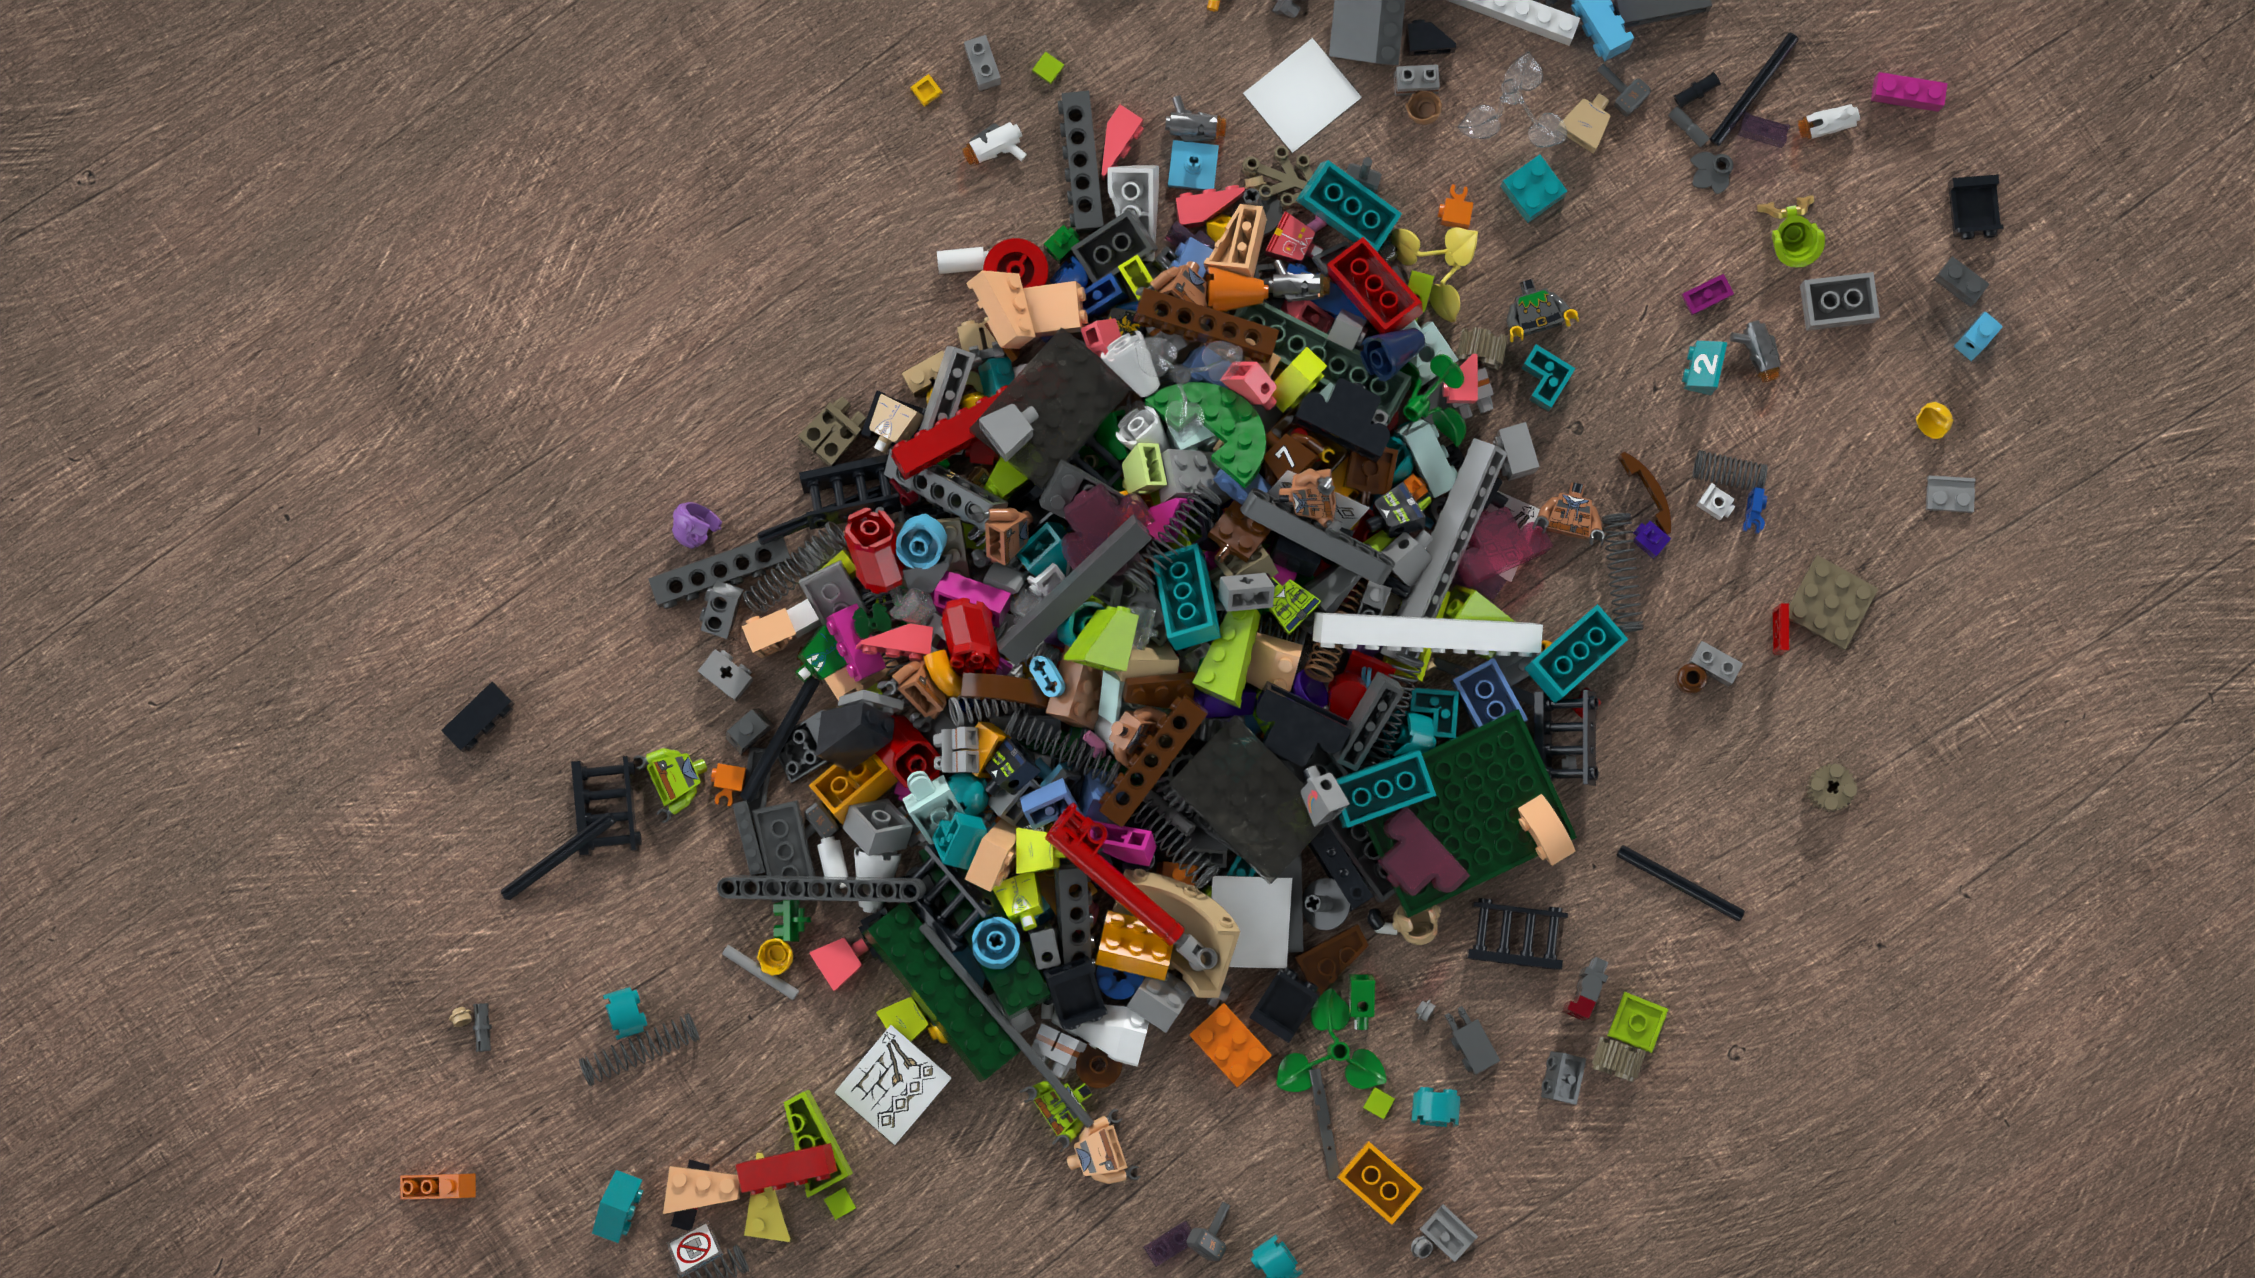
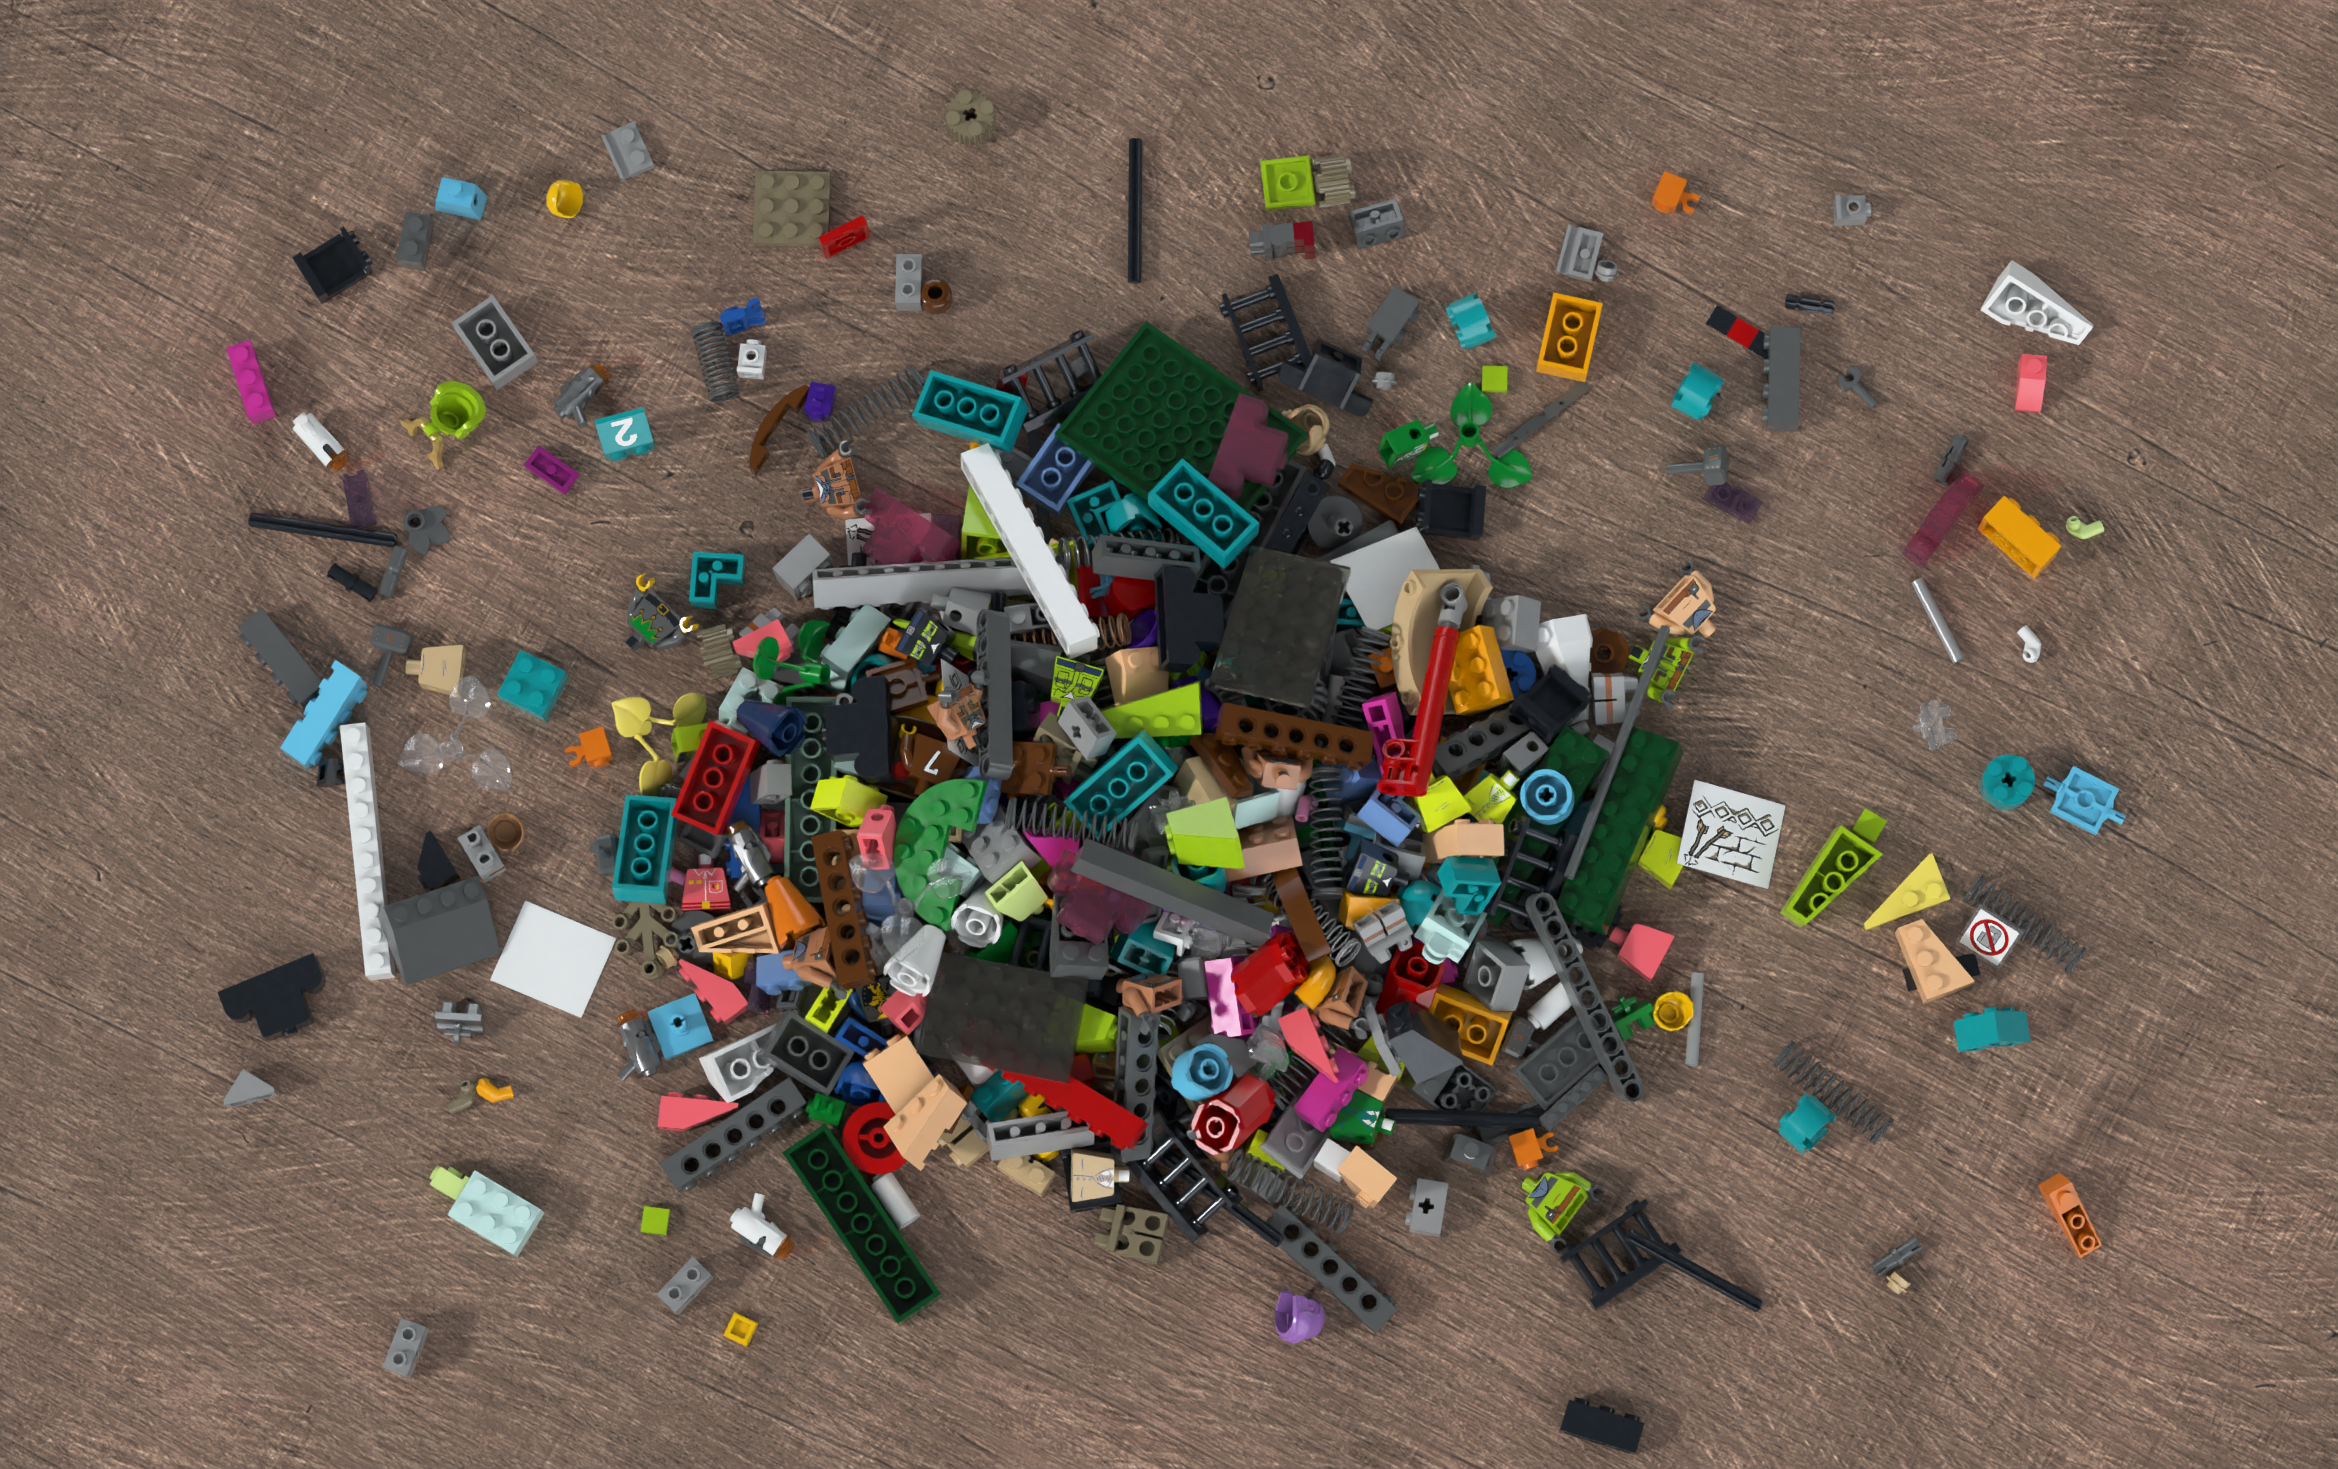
camera: 110 degrees left, 5 degrees down
(724, 610) = (1367, 1244): dark grey brick -> none
(786, 1168) = (1867, 886): red brick -> none
(864, 625) = (1311, 1085): dark green piece -> none
(906, 498) = (1162, 1117): dark red hand -> none
(954, 223) = (862, 1225): none -> dark green brick
(1008, 429) = (1048, 1039): light grey torso -> none
(1043, 679) = (1272, 883): medium azure beam -> none
(1230, 1045) = (1517, 541): orange brick -> none
(1322, 796) = (1242, 559): light grey torso -> none
(1451, 965) = (1329, 377): none -> black plate
(1546, 830) = (1156, 348): light nougat brick -> none

